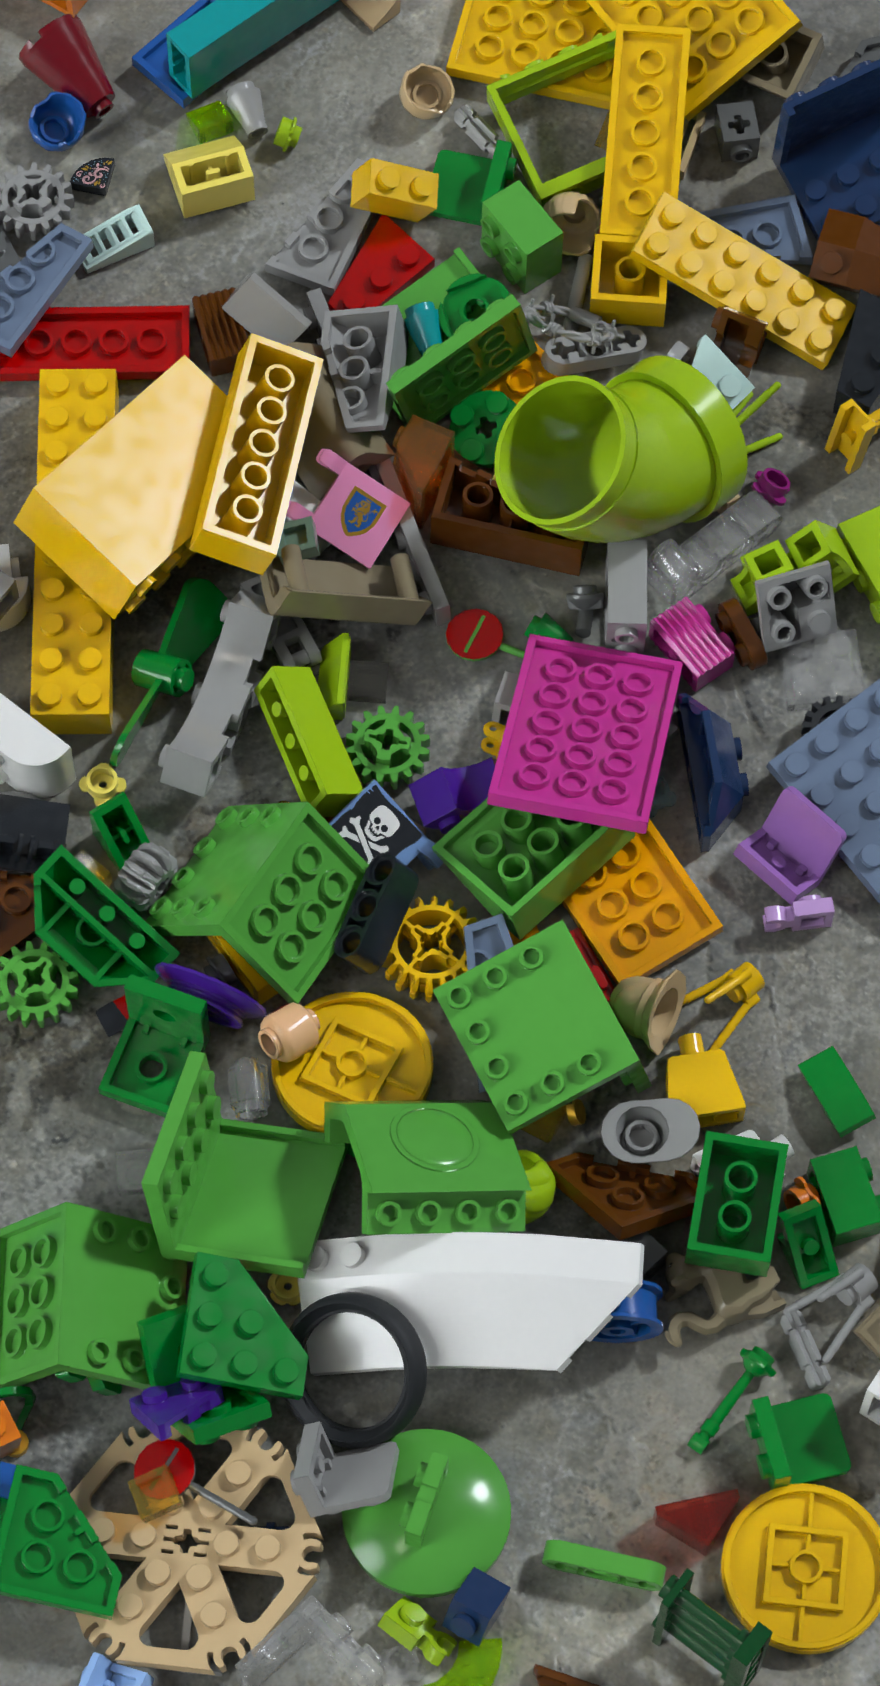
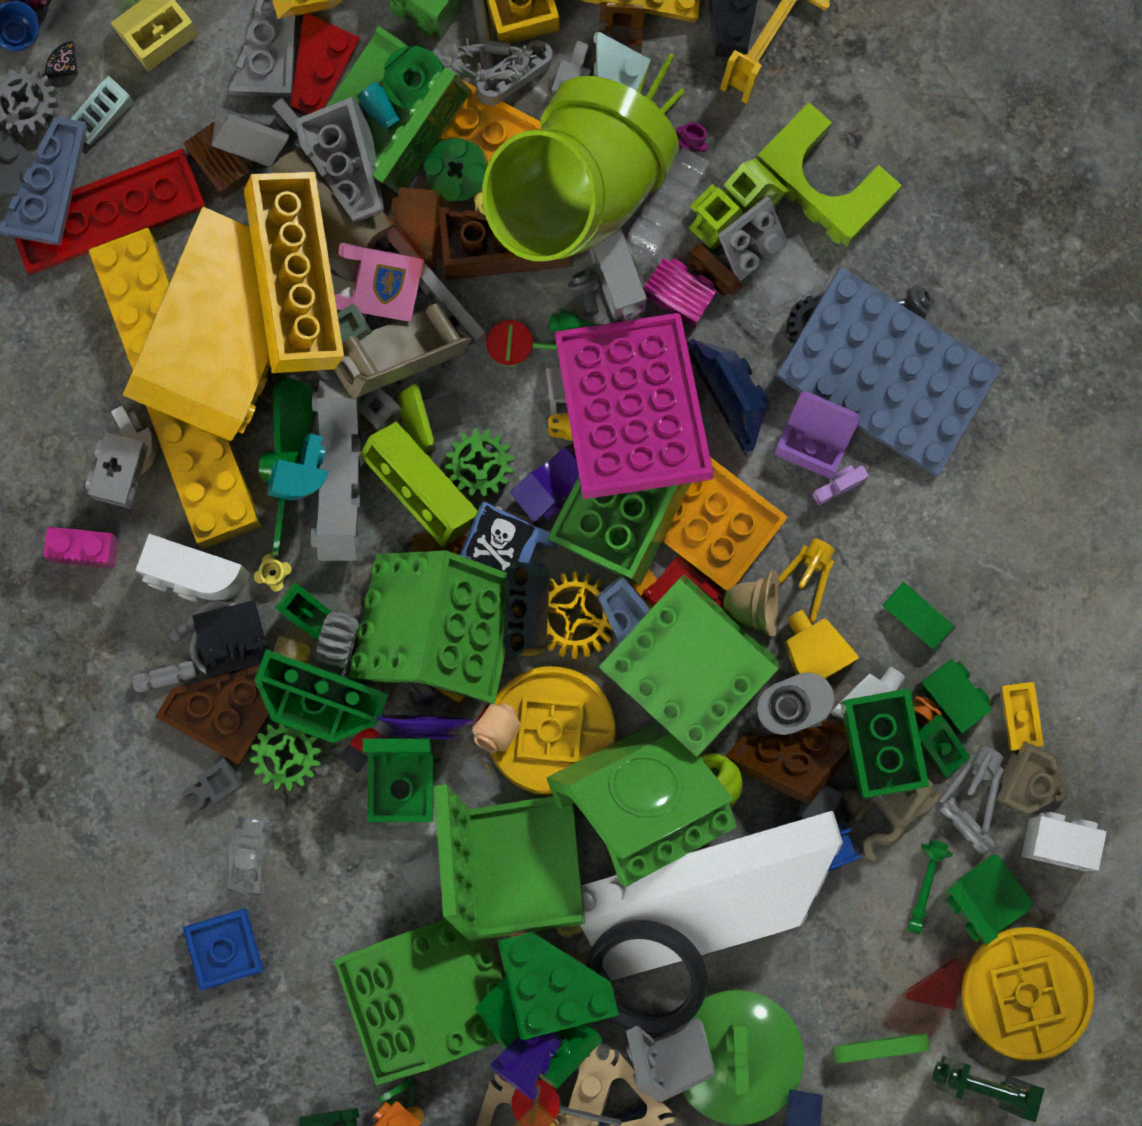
camera: 20 degrees left, 15 degrees up
(171, 682) = (299, 480): none -> teal brick

